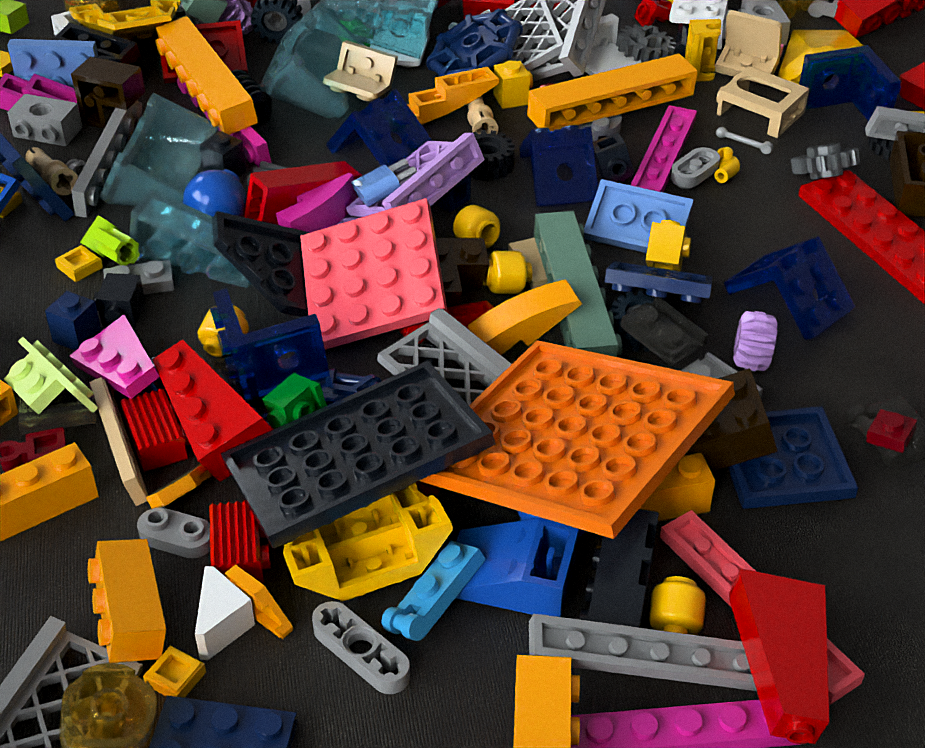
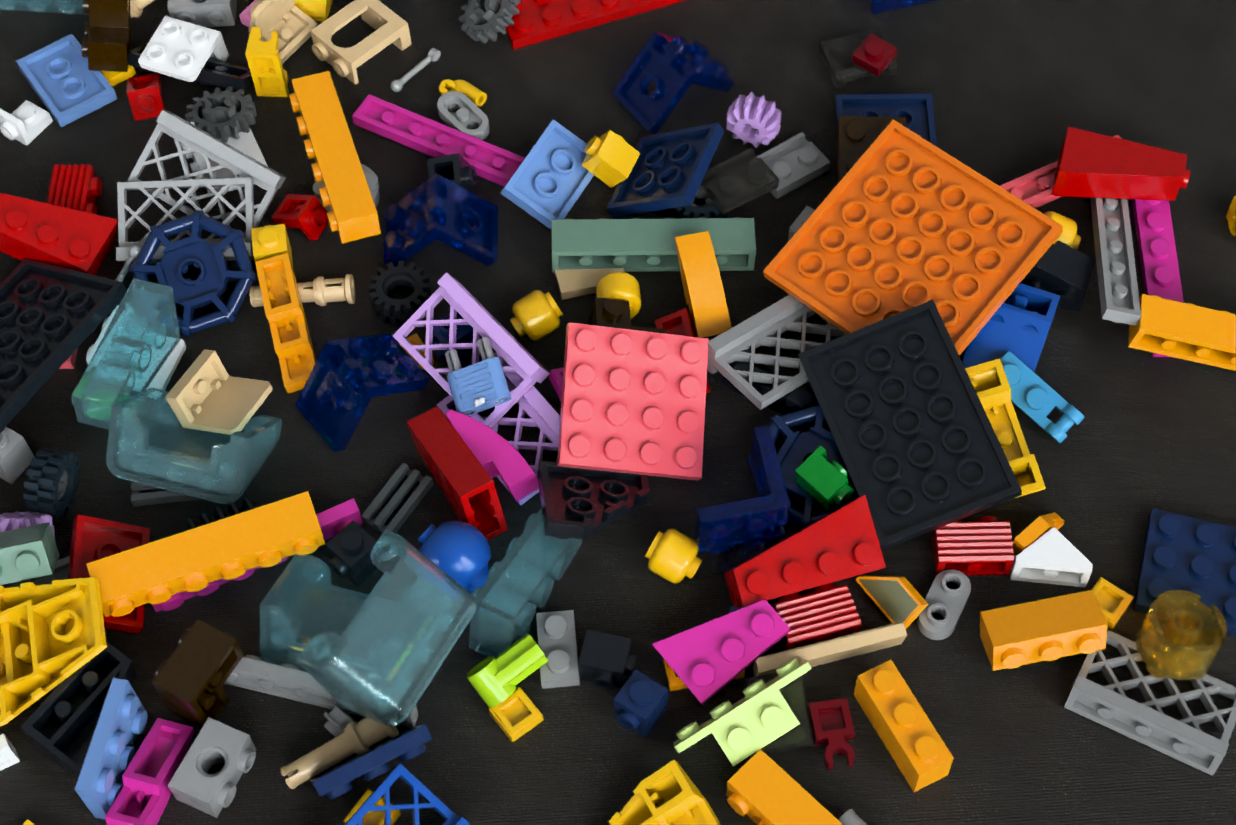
camera: 80 degrees left, 15 degrees up
(118, 139) = (394, 637): none -> clear light blue windscreen
(366, 663) = (1084, 446): light grey beam -> none

